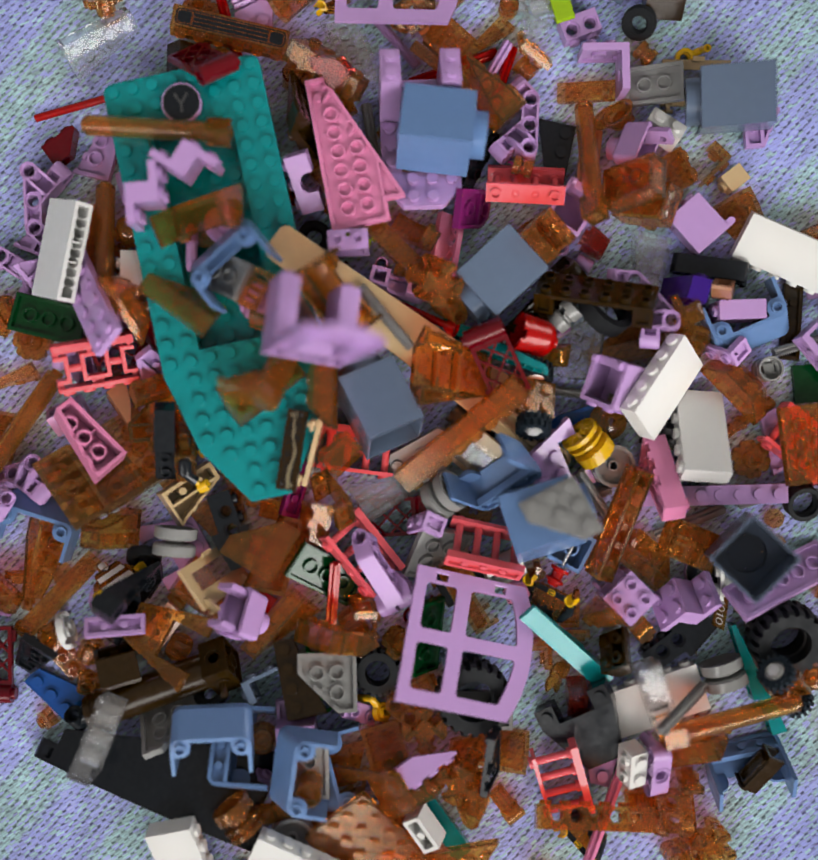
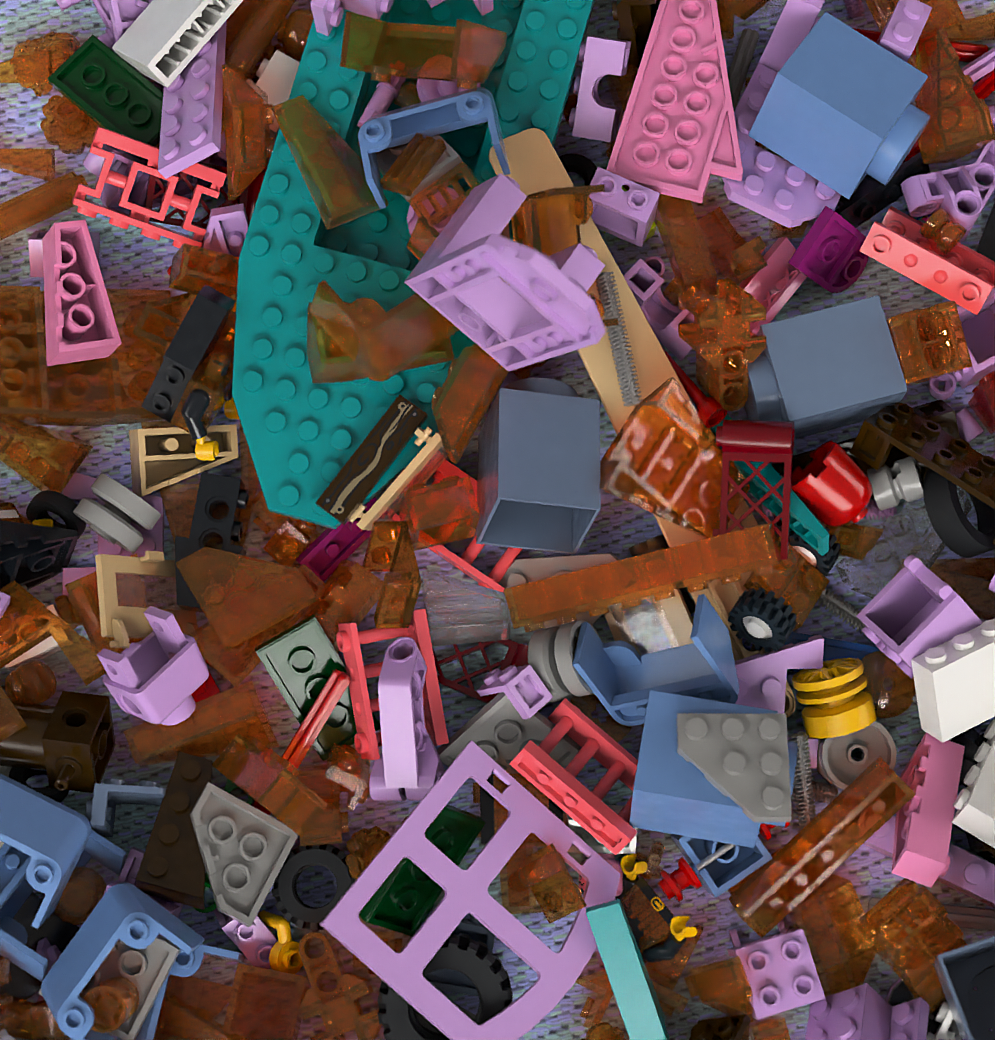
camera: 35 degrees right, 10 degrees down
(120, 400) = (153, 265): nougat slope -> none
(227, 281) = (409, 164): none -> clear orange tile
(490, 608) = (549, 883): none -> clear orange hinge

